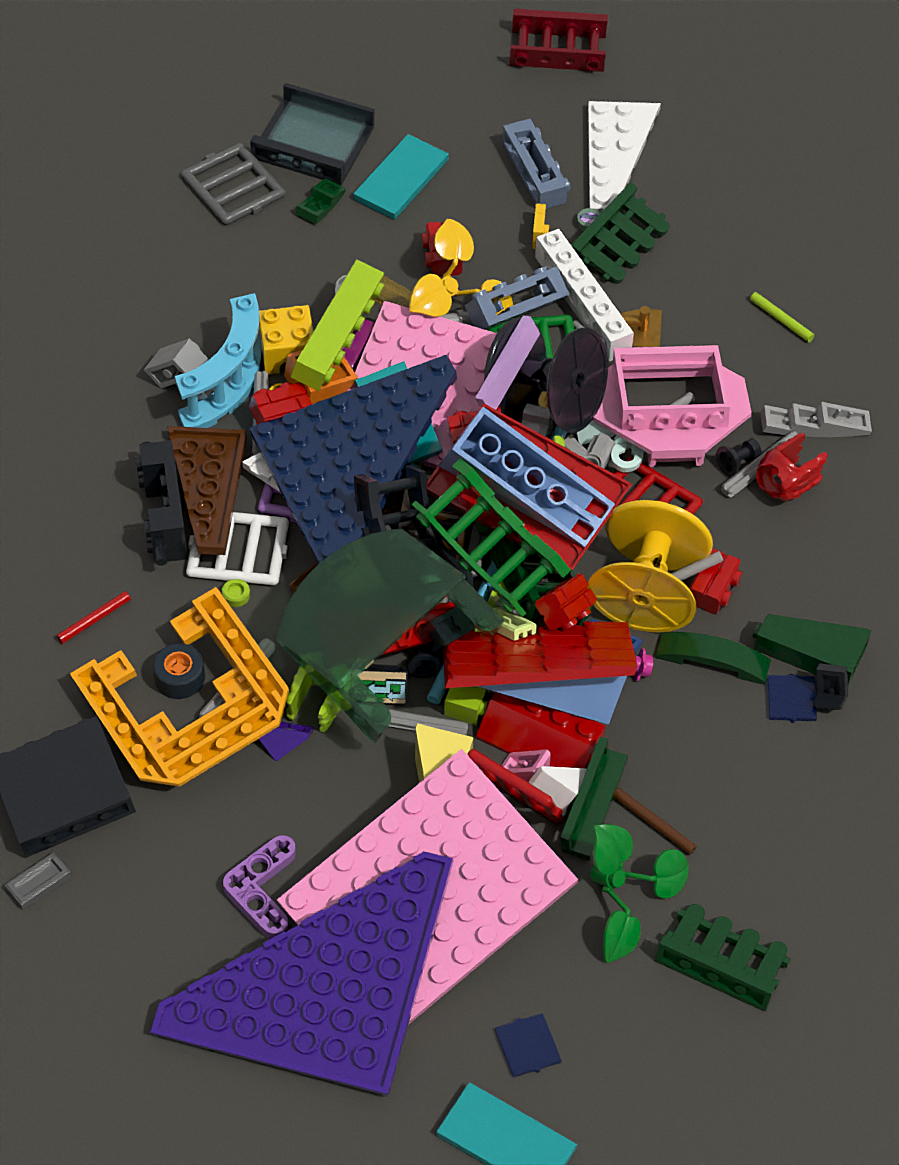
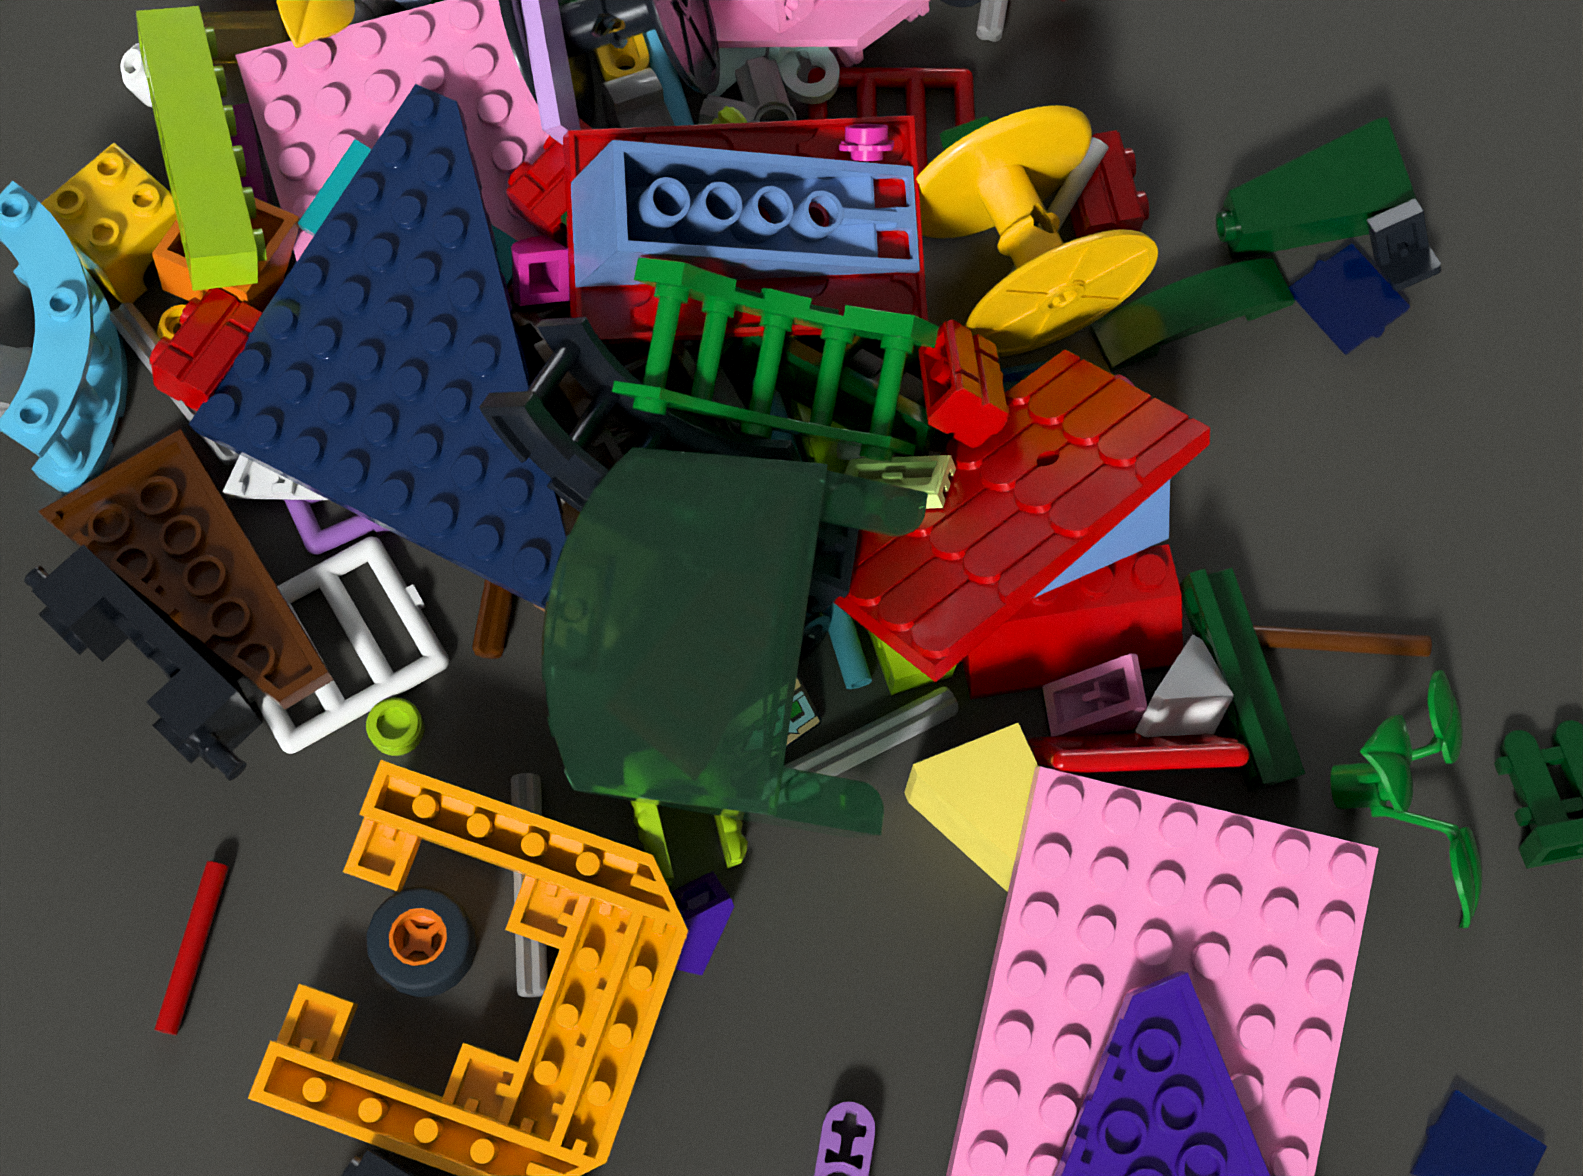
camera: 40 degrees left, 15 degrees up
(432, 455) = (539, 271): none -> dark pink brick
(599, 479) = (866, 141): none -> dark pink plate

